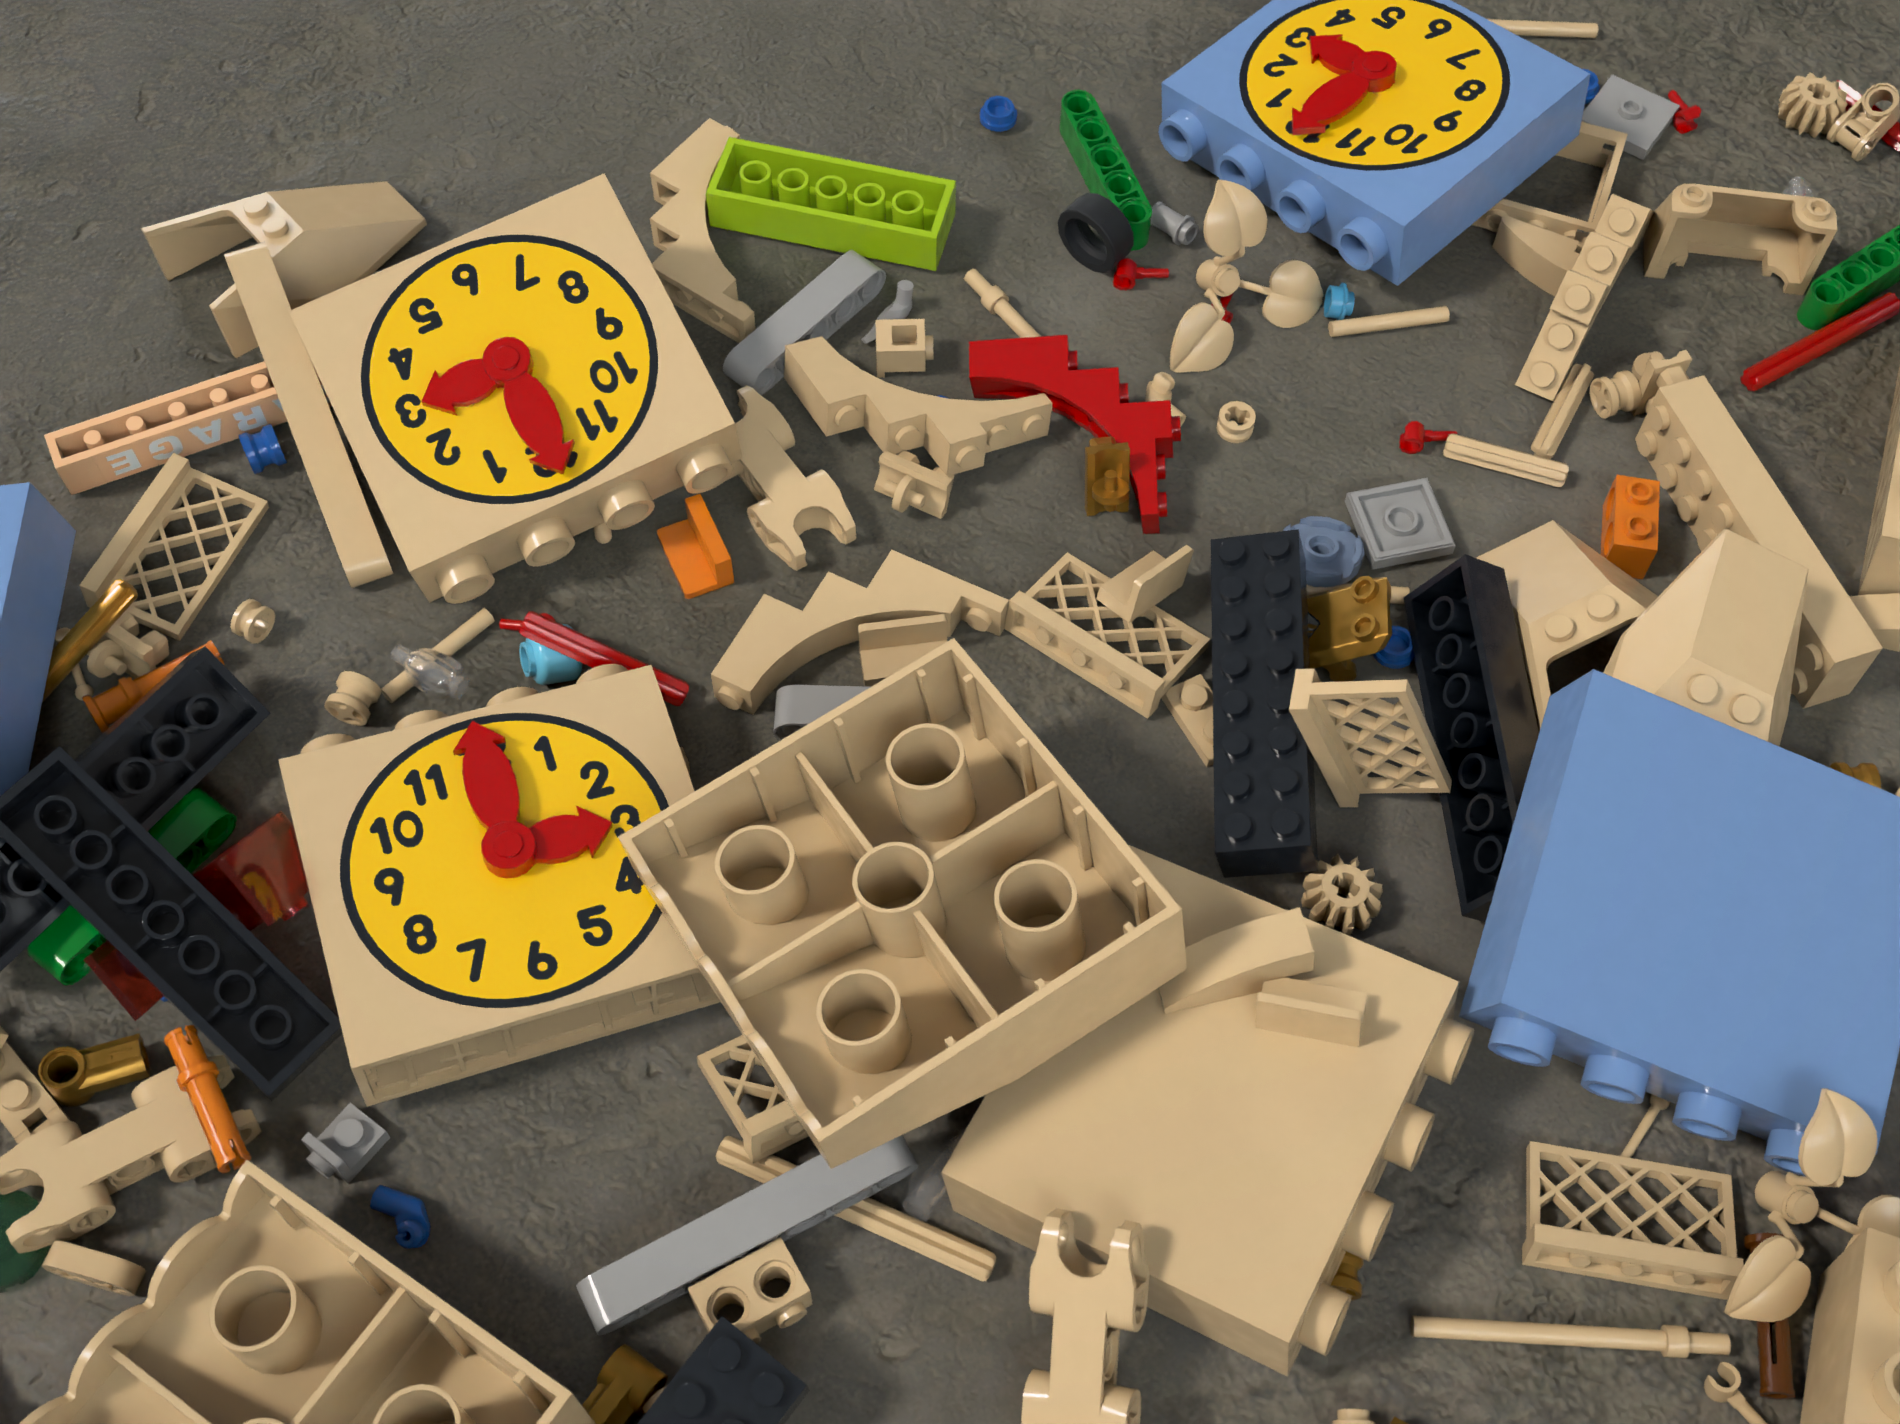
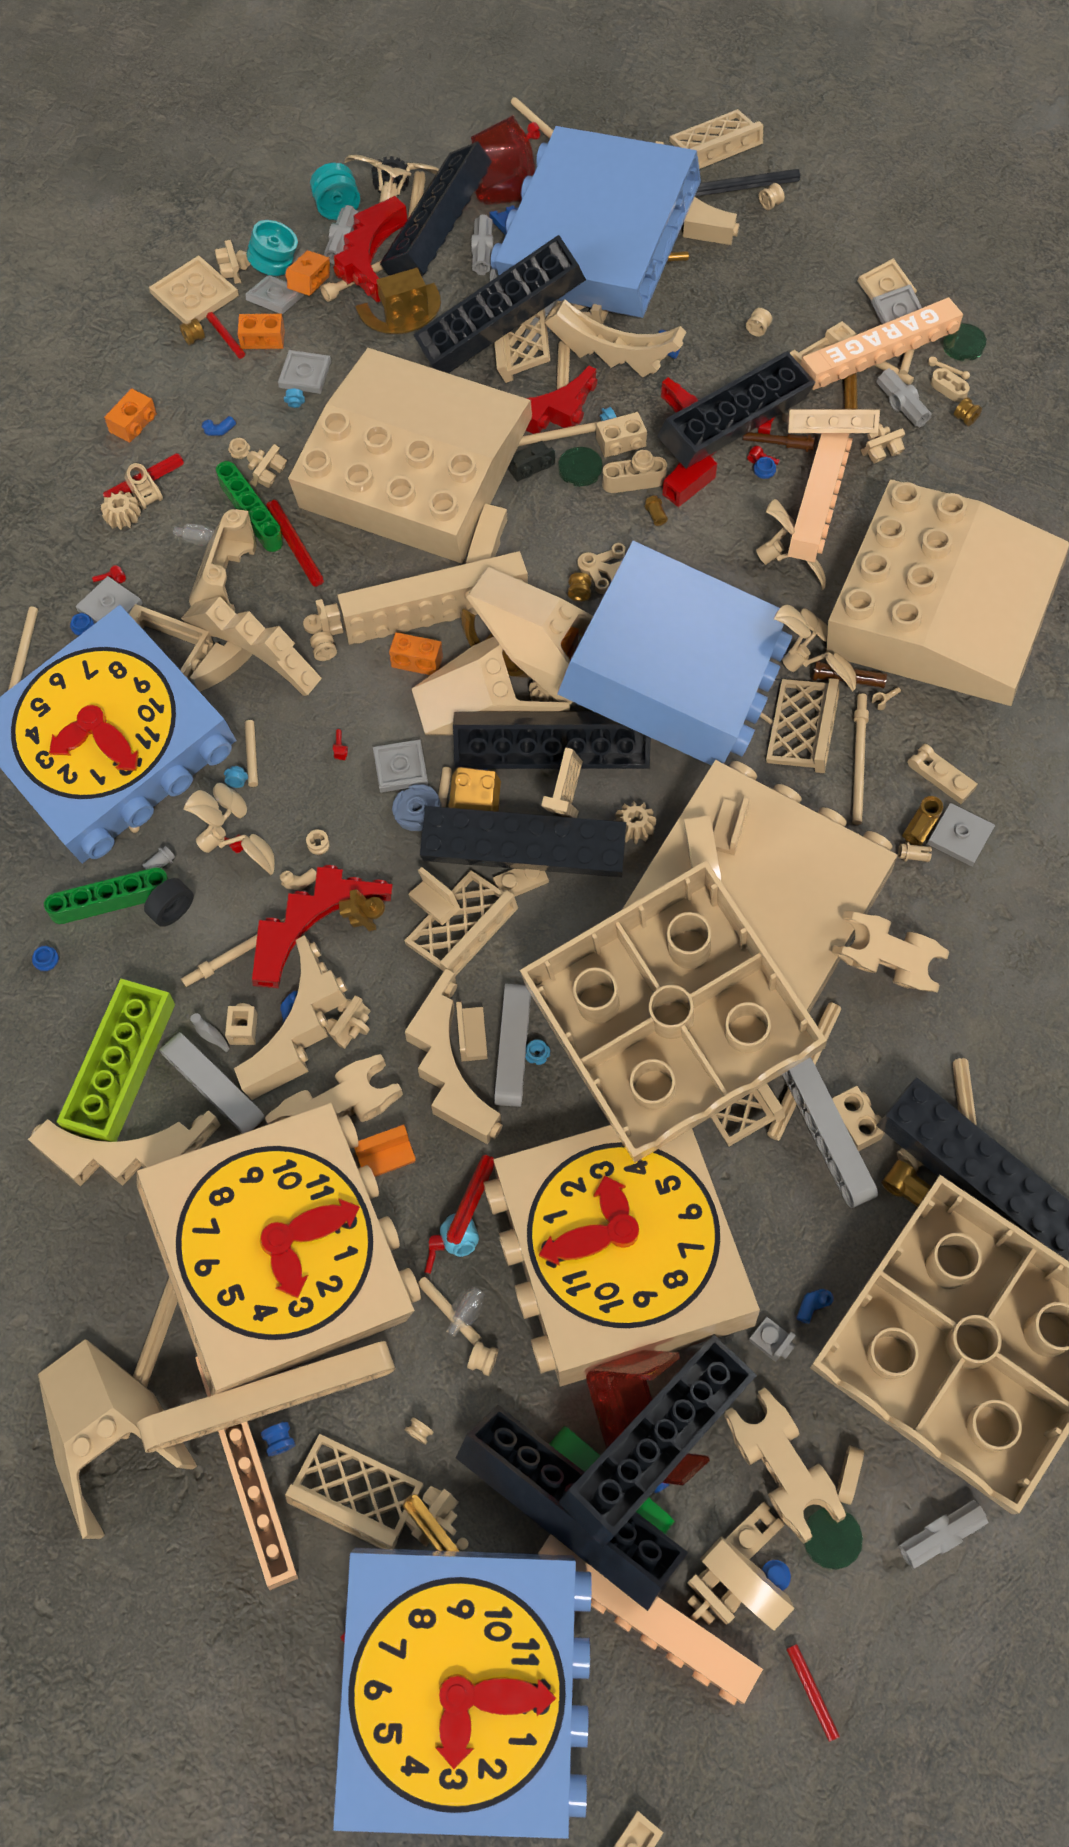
camera: 85 degrees left, 5 degrees up
(97, 1067) = (730, 1488): pearl gold piece -> none
(116, 701) = (470, 1505): orange pin -> none
(199, 1080) = (751, 1413): orange pin -> none
(1128, 272) = (197, 890): red hand -> none
(1506, 460) = (360, 708): tan axle -> none
(1562, 411) = (333, 676): tan axle -> none

